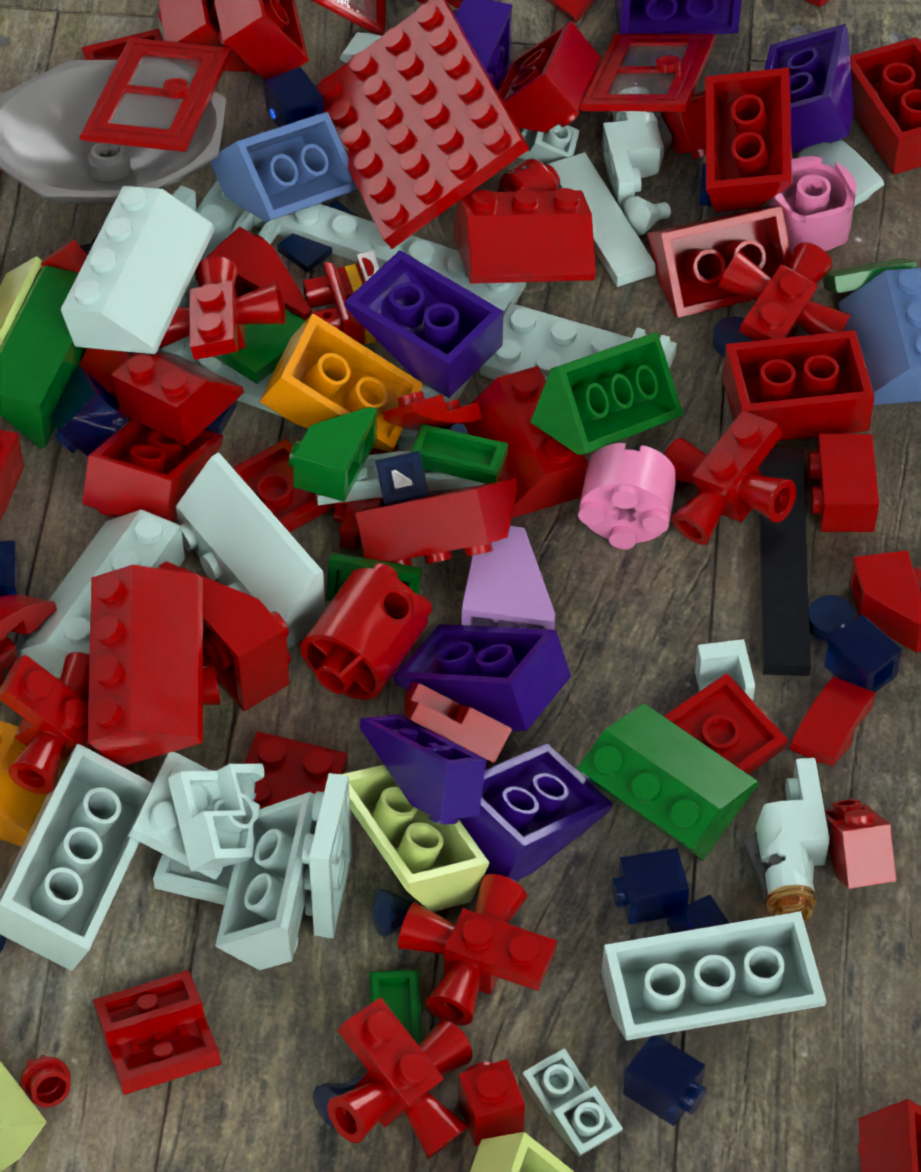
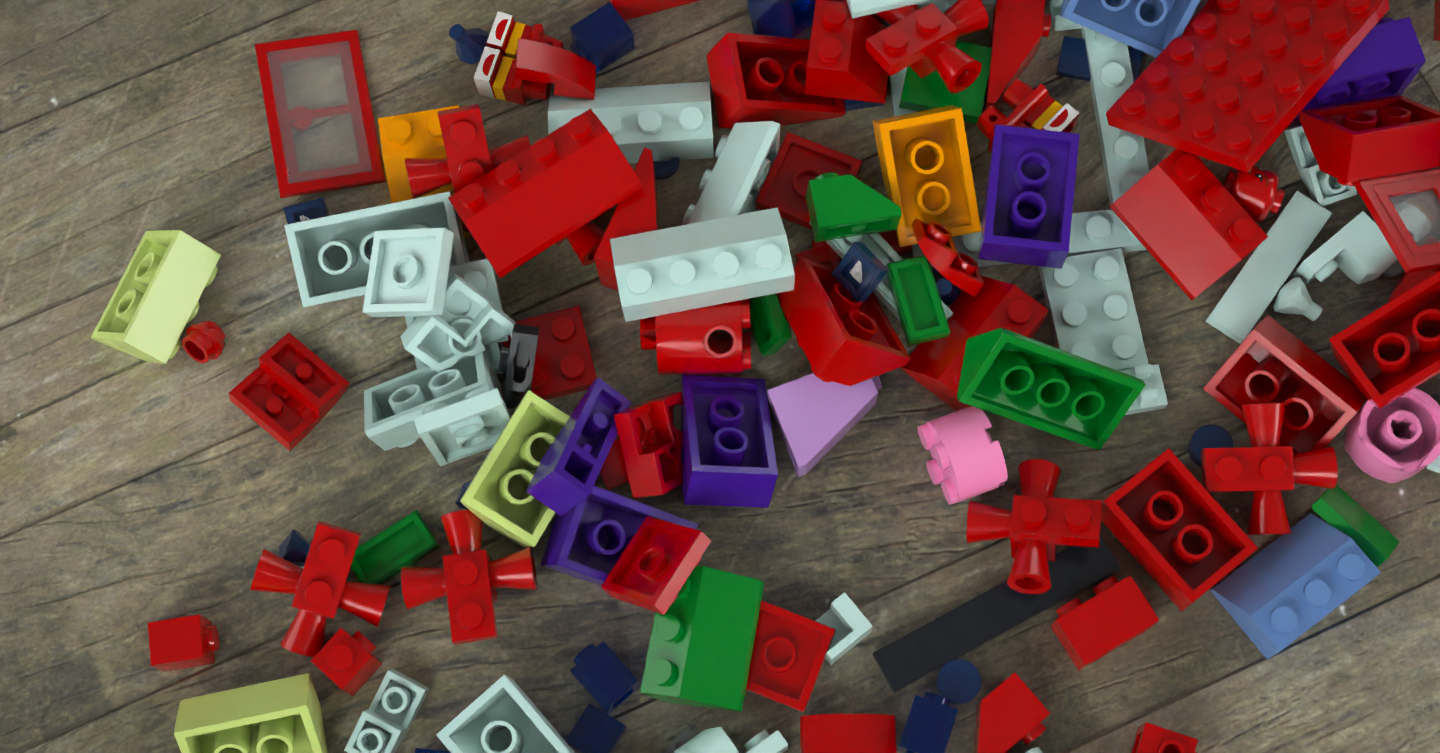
camera: 65 degrees right, 20 degrees up
(140, 812) = (408, 272): none -> light aqua plate
(290, 770) = (519, 363): none -> black piece
(317, 567) = (702, 264): none -> light aqua slope
(579, 763) = (656, 564): none -> red plate

